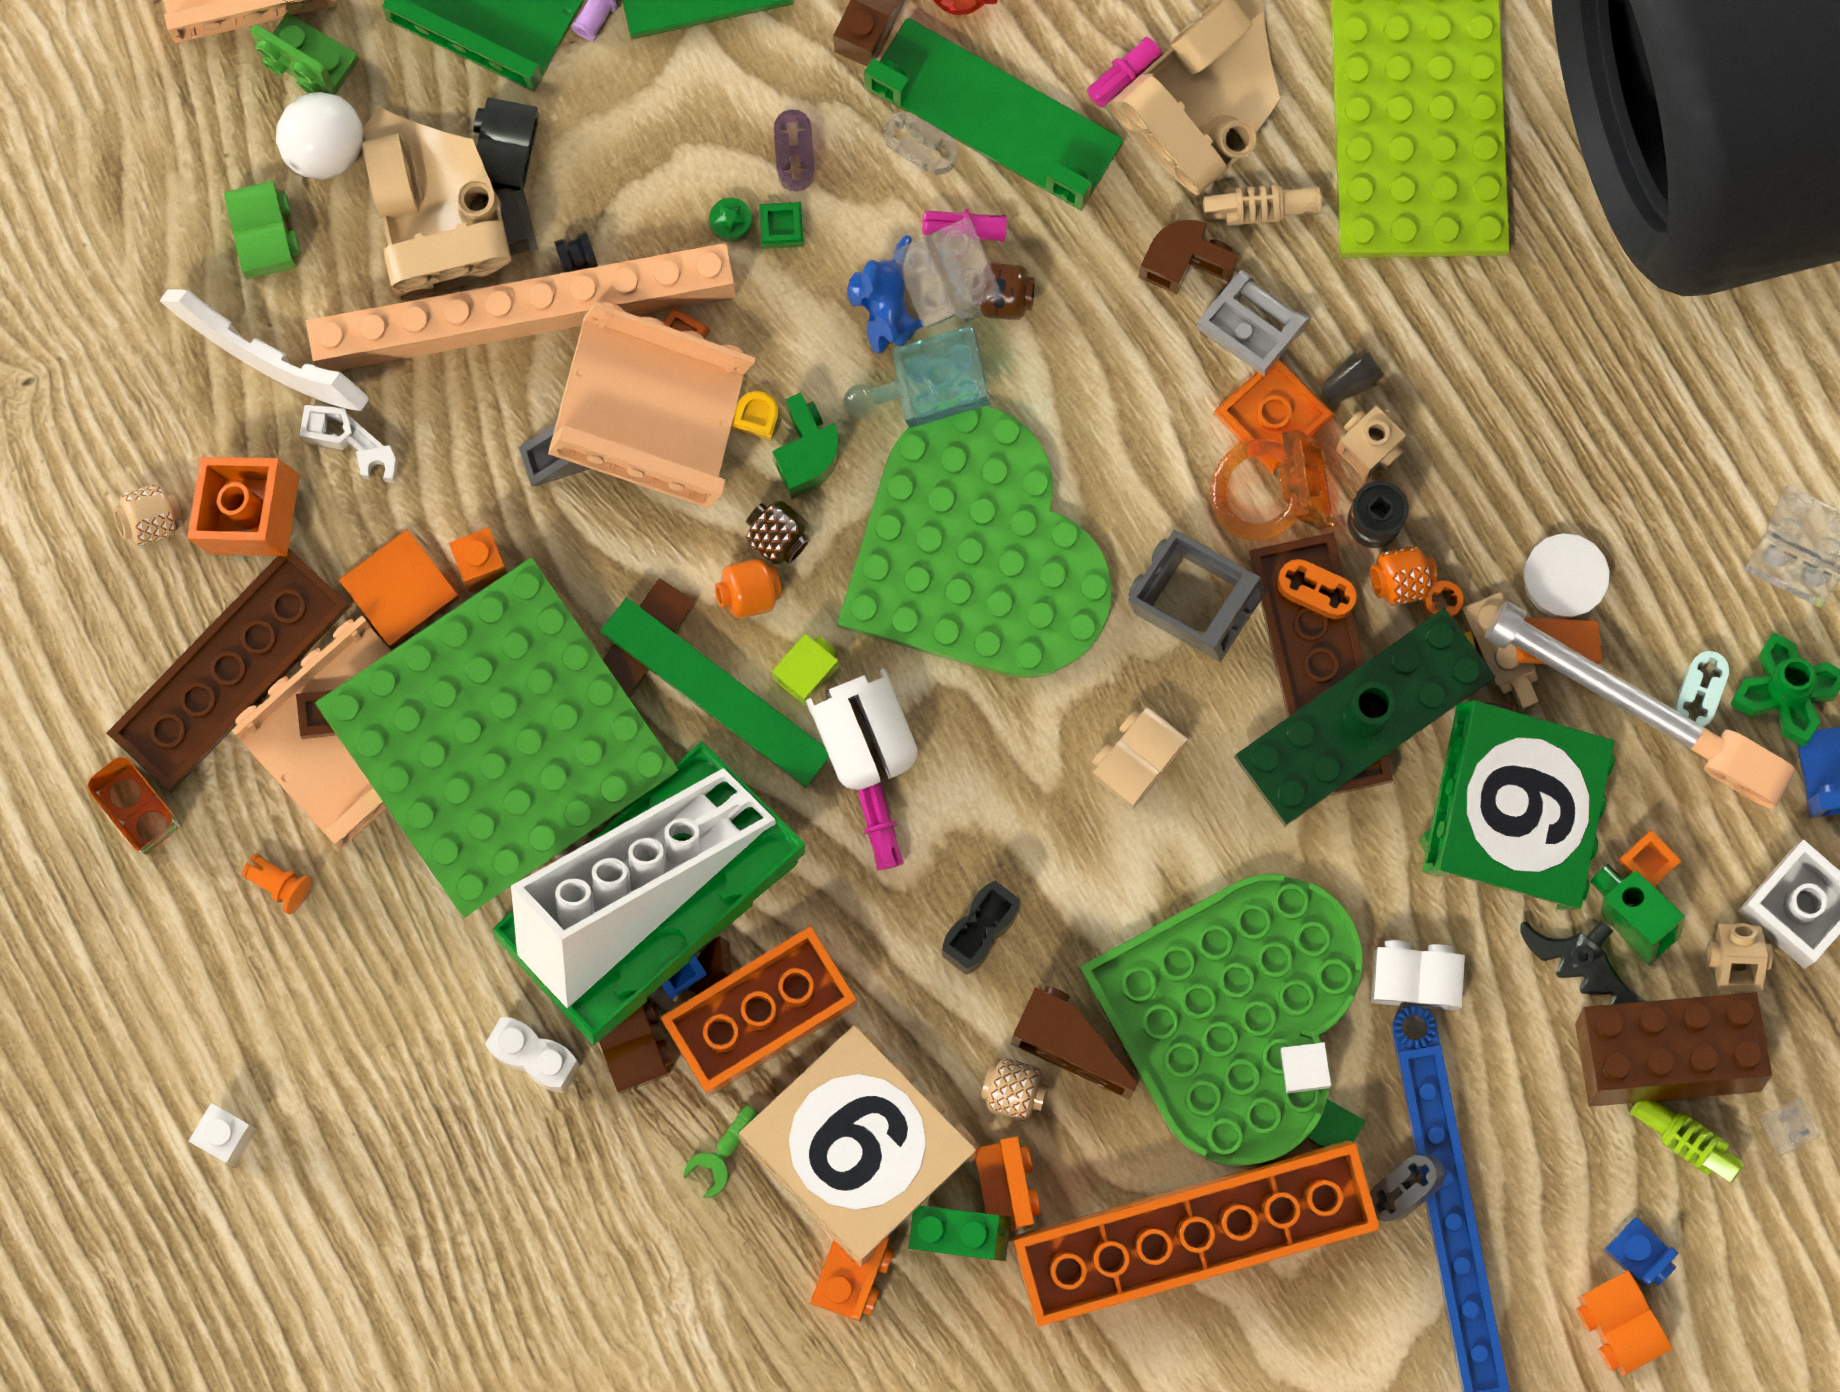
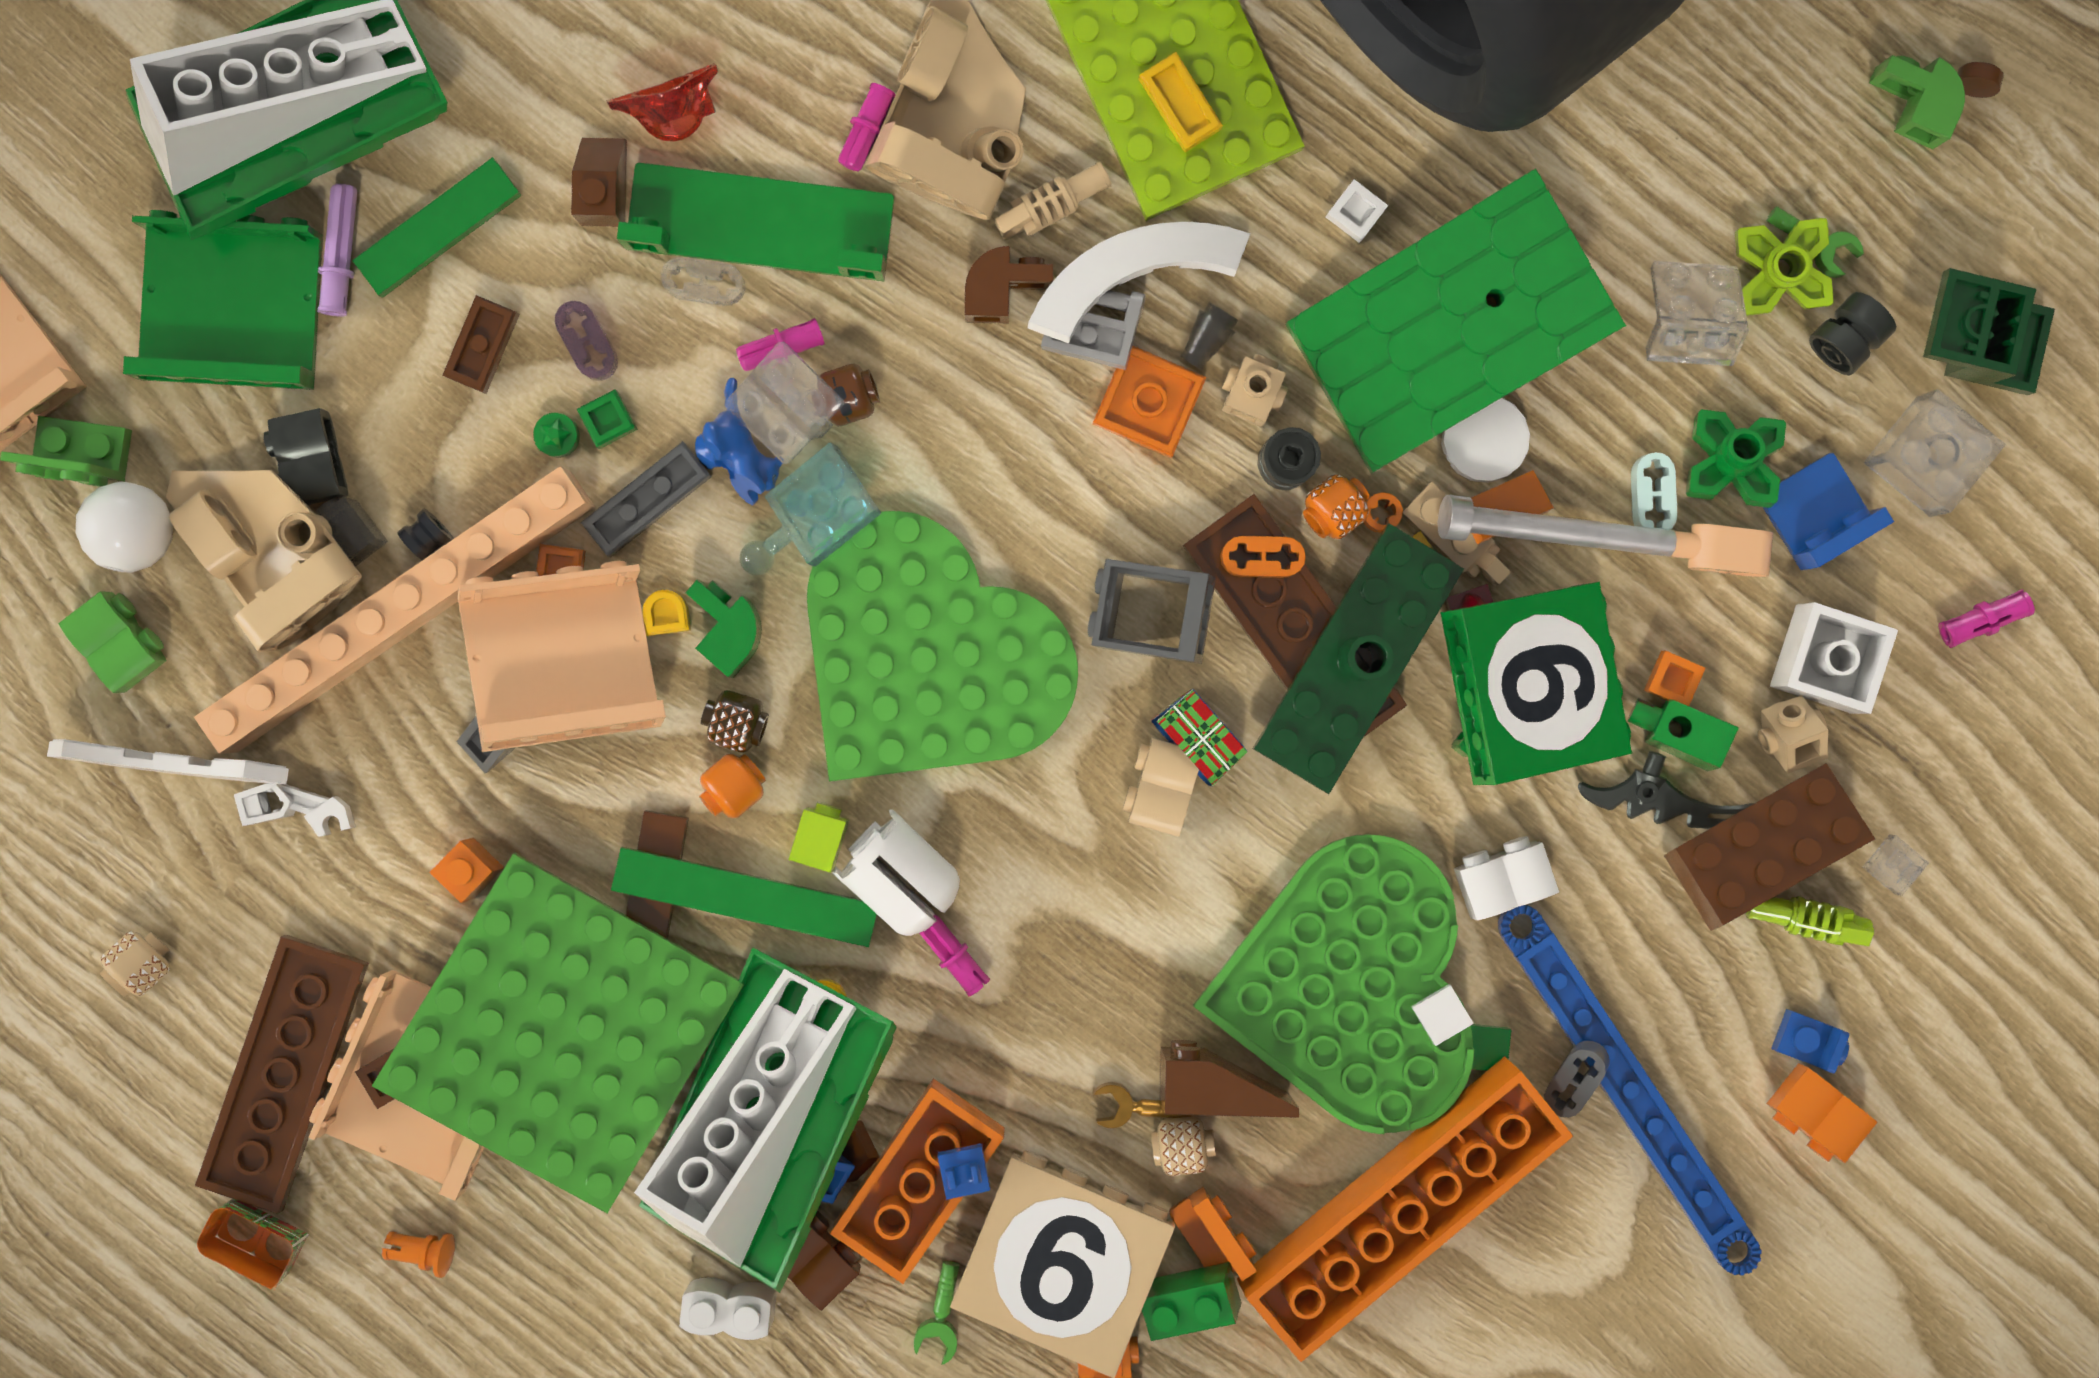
camera: 25 degrees left, 10 degrees up
(243, 506) = (220, 919): orange brick -> none
(398, 589) = (406, 926): orange tile -> none
(700, 114) = (481, 344): none -> reddish brown plate
(784, 309) = (646, 499): none -> dark grey tile
(807, 1011) = (963, 1171): none -> blue tile
(988, 919) = (1083, 1024): pearl dark grey brick -> none
(992, 1043) = (1126, 1106): none -> pearl gold piece
(1192, 724) = (1200, 736): none -> piece
(1301, 480) = (1205, 460): clear orange tile -> none
(1312, 280) = (1130, 256): none -> white tile
(1413, 165) = (1180, 102): none -> yellow tile
(1533, 327) = (1356, 211): none -> white tile
(1574, 454) = (1455, 322): none -> green piece

